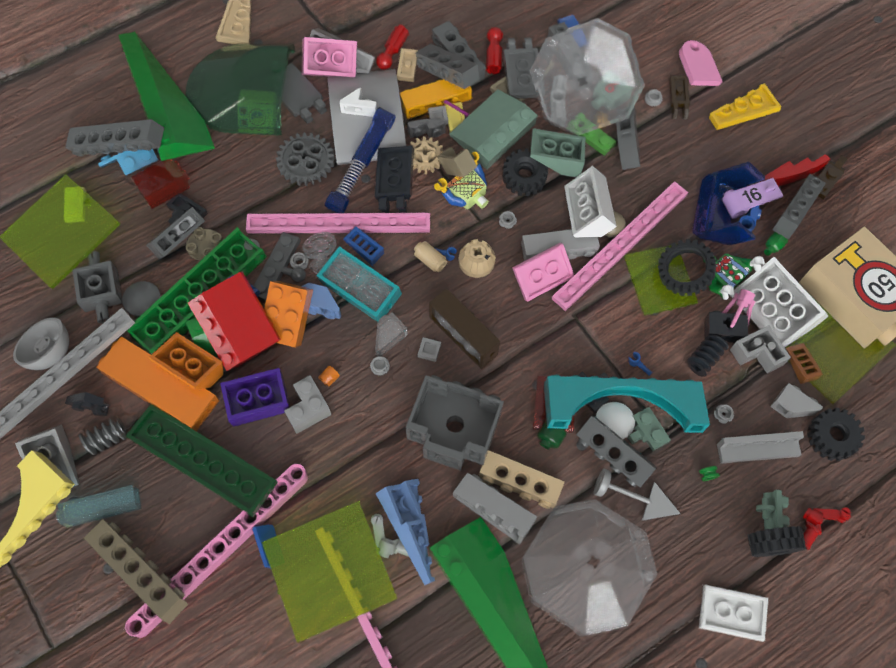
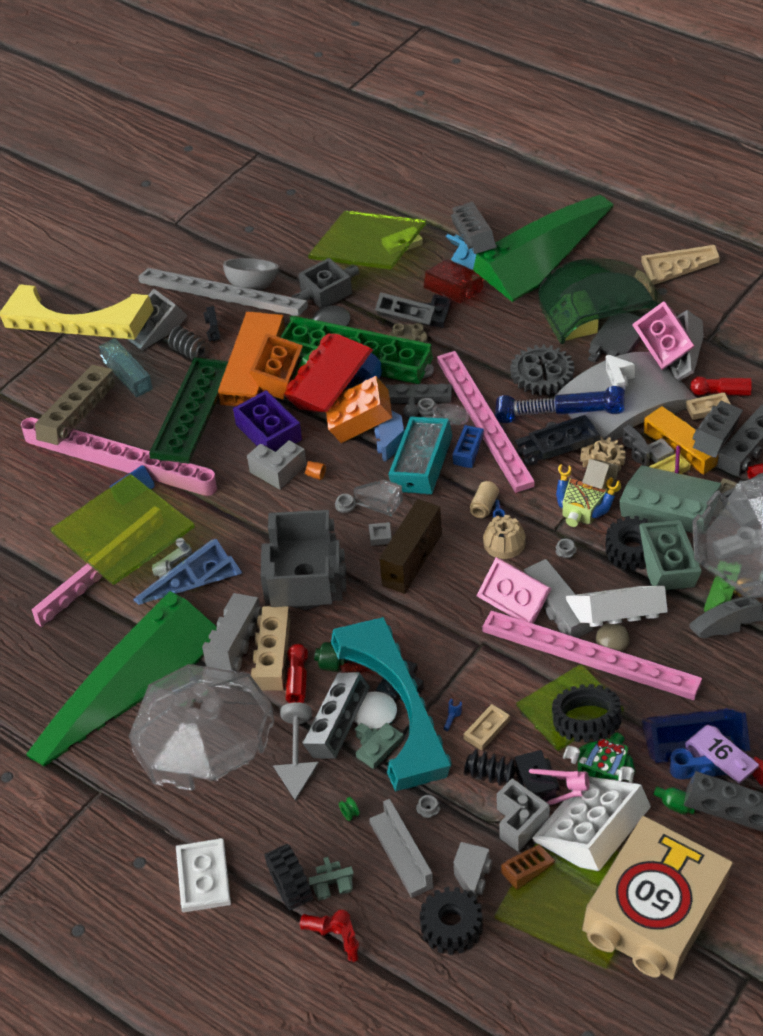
camera: 75 degrees right, 20 degrees down
(557, 469) = (296, 674): none -> red piece
(664, 343) = (486, 727): none -> tan plate

